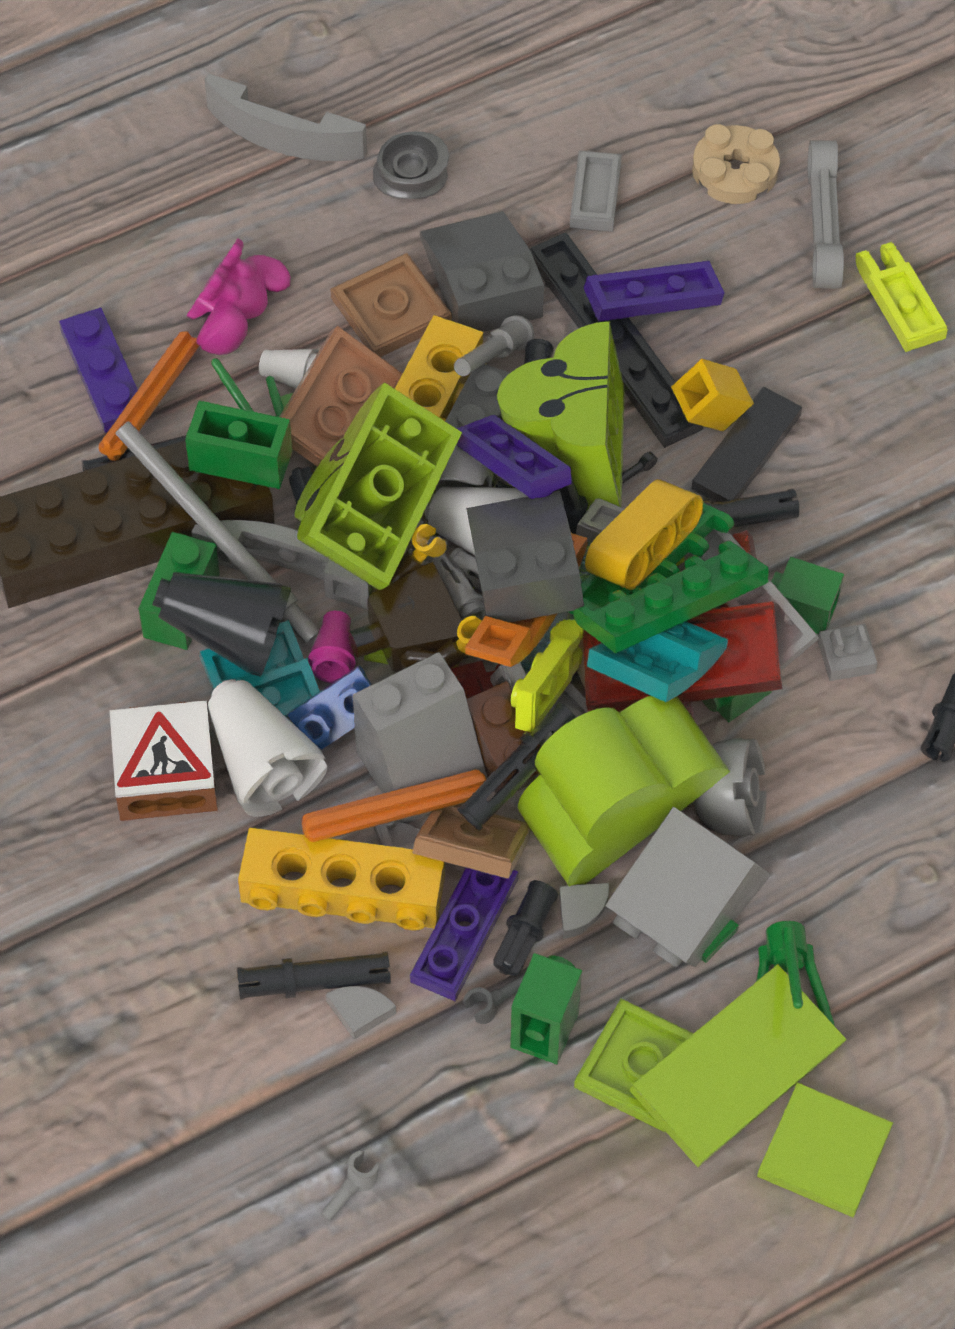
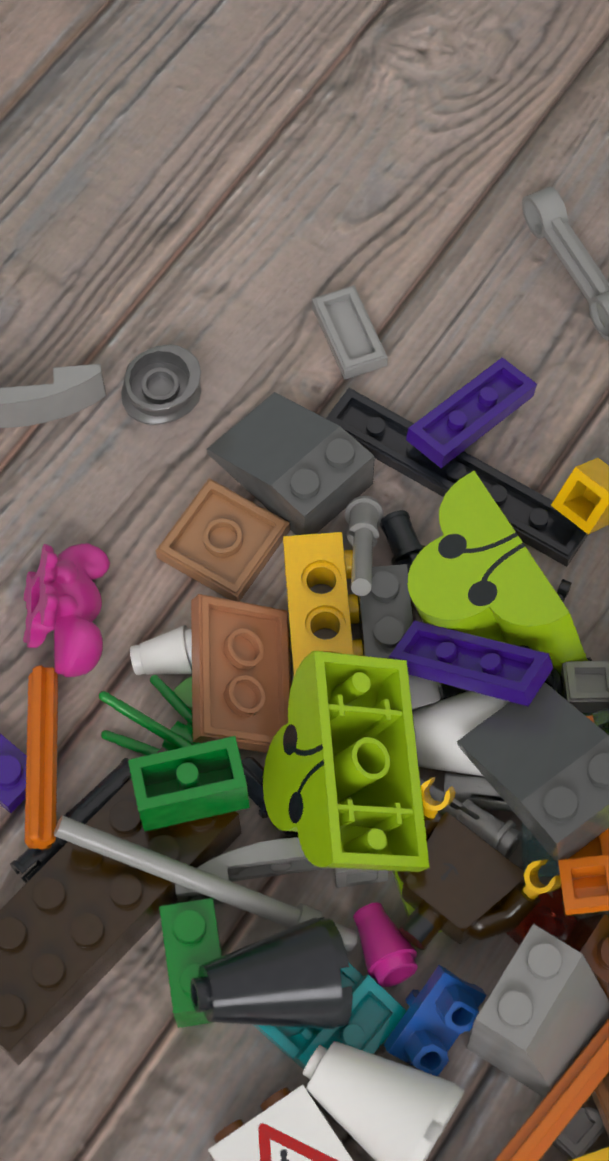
camera: 25 degrees left, 5 degrees up
(739, 143) = (463, 225): tan plate -> none

